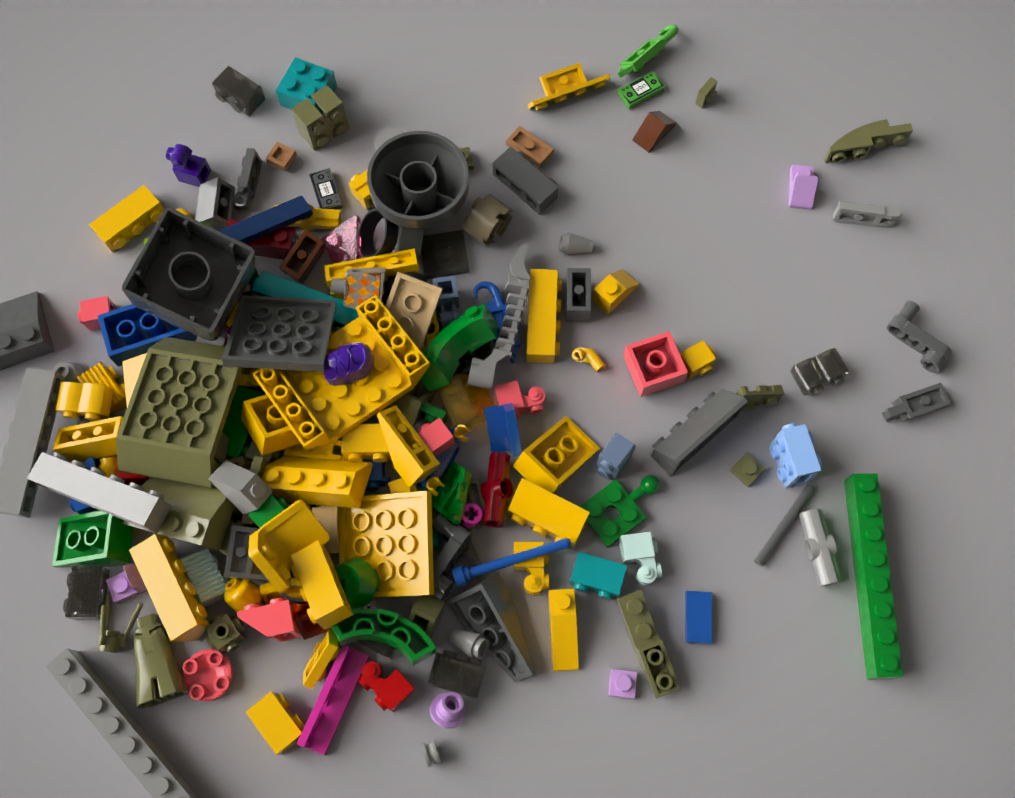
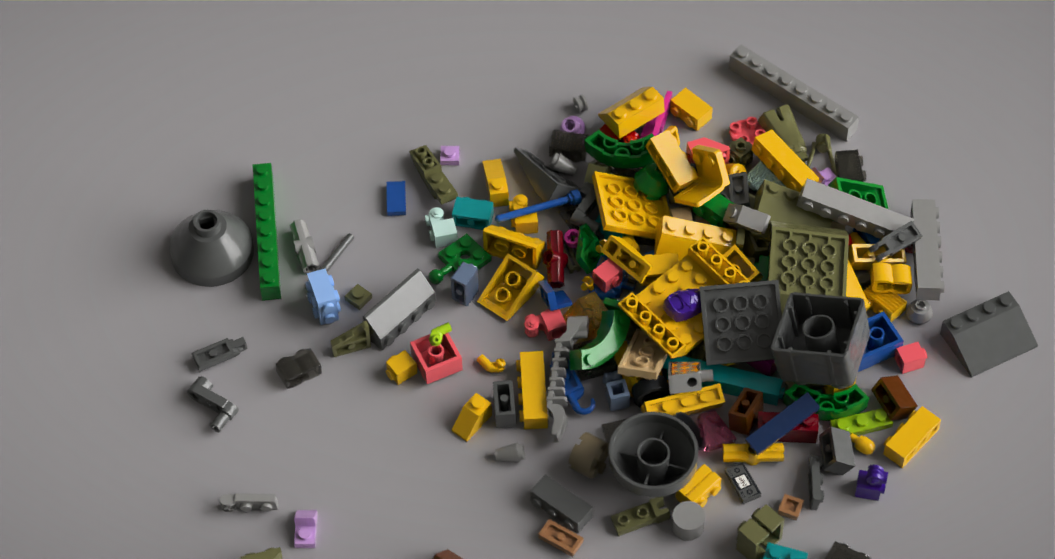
camera: 175 degrees right, 15 degrees down
(60, 437) = (897, 240): none -> dark grey hinge
(125, 253) = (894, 397): none -> reddish brown brick
(360, 711) = (633, 111): none -> yellow slope
(654, 374) = (437, 334): none -> lime arm
(943, 559) = (211, 248): none -> dark grey cone

